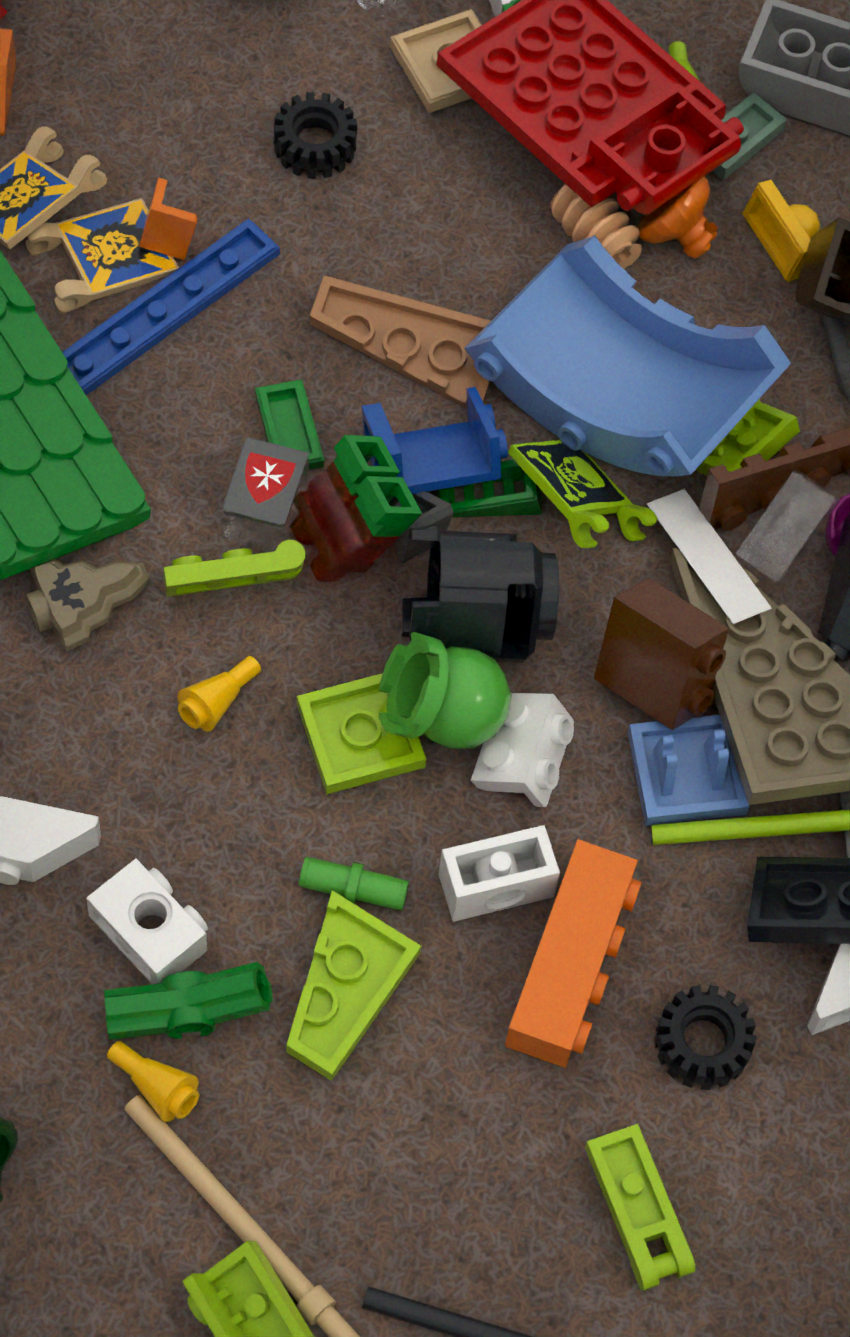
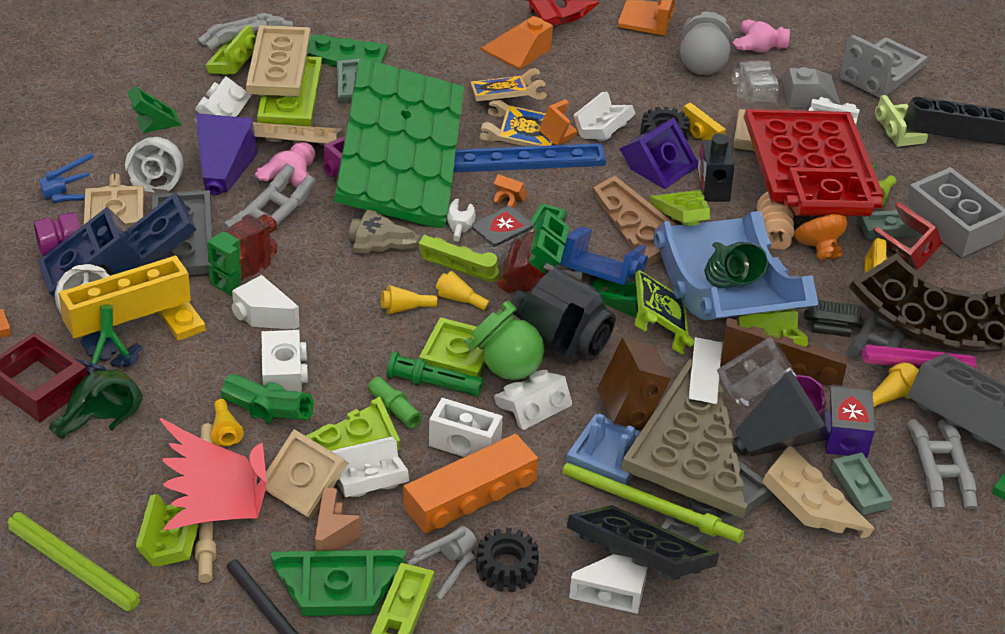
camera: 40 degrees right, 20 degrees down
(167, 494) = (460, 220): none -> white hand
(197, 393) = (509, 189): none -> orange tile
(217, 170) = (601, 118): none -> white bracket
(242, 1187) = (215, 481): none -> coral piece
(268, 627) = (455, 289): none -> yellow cone
(343, 814) = (419, 371): none -> green pin
(345, 1094) = (302, 472): none -> tan plate
(351, 194) = (660, 154): none -> dark purple slope
(371, 101) = (701, 125): none -> yellow plate
(420, 1021) = (371, 467): none -> white bracket
(454, 1156) = (334, 528): none -> nougat slope
(456, 182) = (716, 156): none -> black torso
(466, 279) = (683, 206): none -> lime wing
(524, 1224) = (337, 580): none -> green wing
(622, 347) = (735, 264): none -> dark green hair
(627, 1063) = (454, 546): none -> light grey plant
(799, 128) = (930, 235): none -> red piece
(803, 347) = (834, 317): none -> pearl dark grey piece

